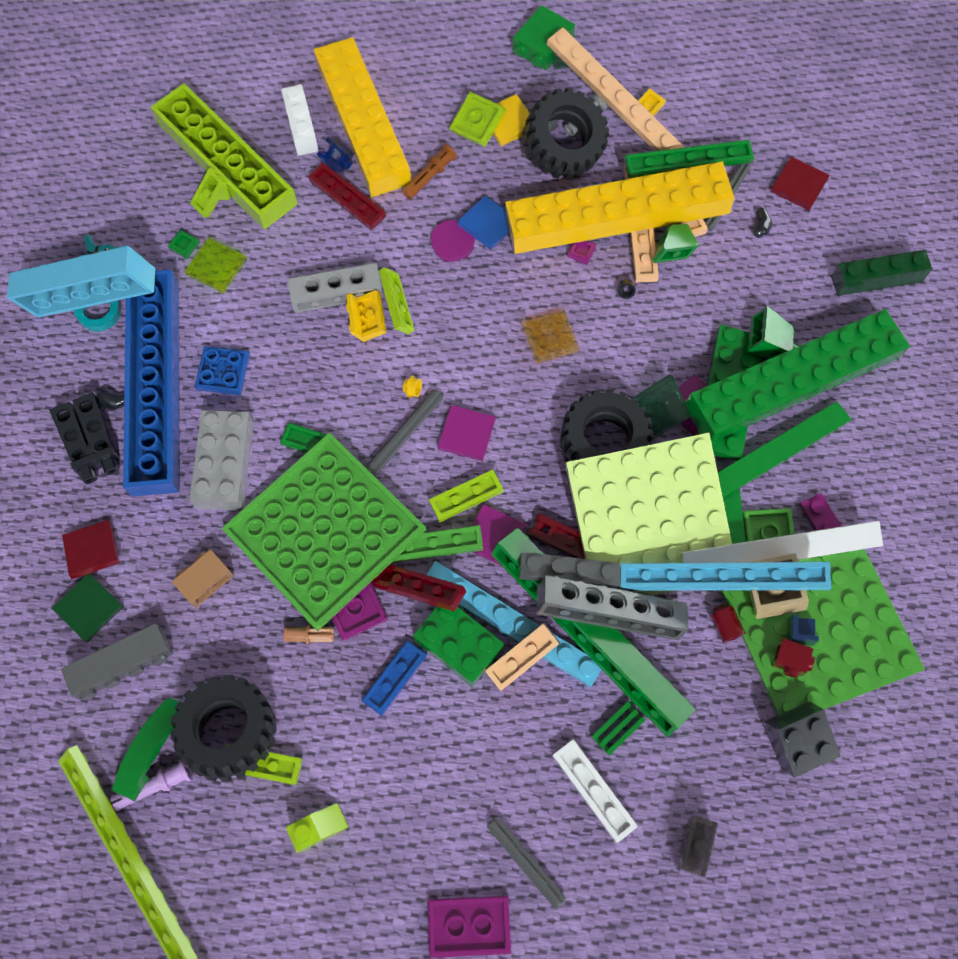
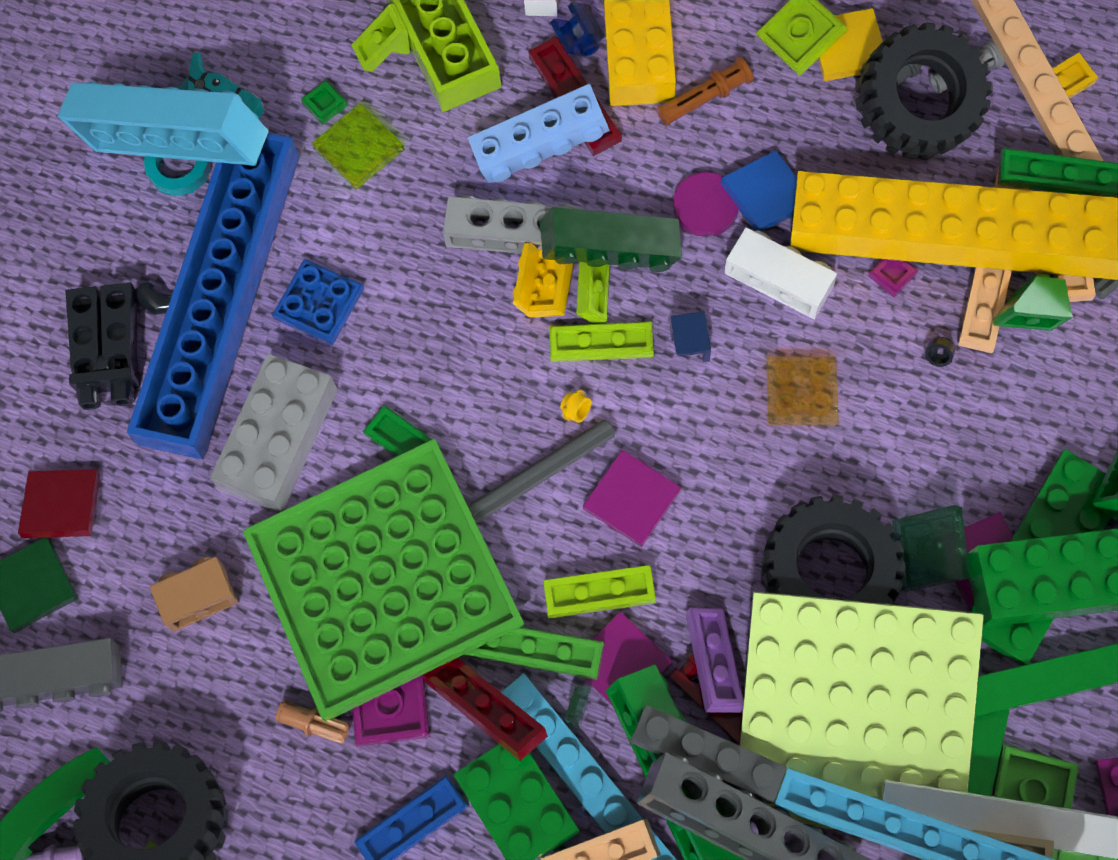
camera: 25 degrees right, 0 degrees up
(333, 225) = (538, 134): none -> light blue brick
(401, 275) = (610, 239): none -> dark green brick
(414, 343) = (601, 341): none -> lime tile
(471, 321) = (690, 335): none -> dark blue panel
(477, 570) = (577, 707): none -> tile
(513, 268) = (780, 272): none -> white brick
(553, 514) = (714, 660): none -> medium lavender tile

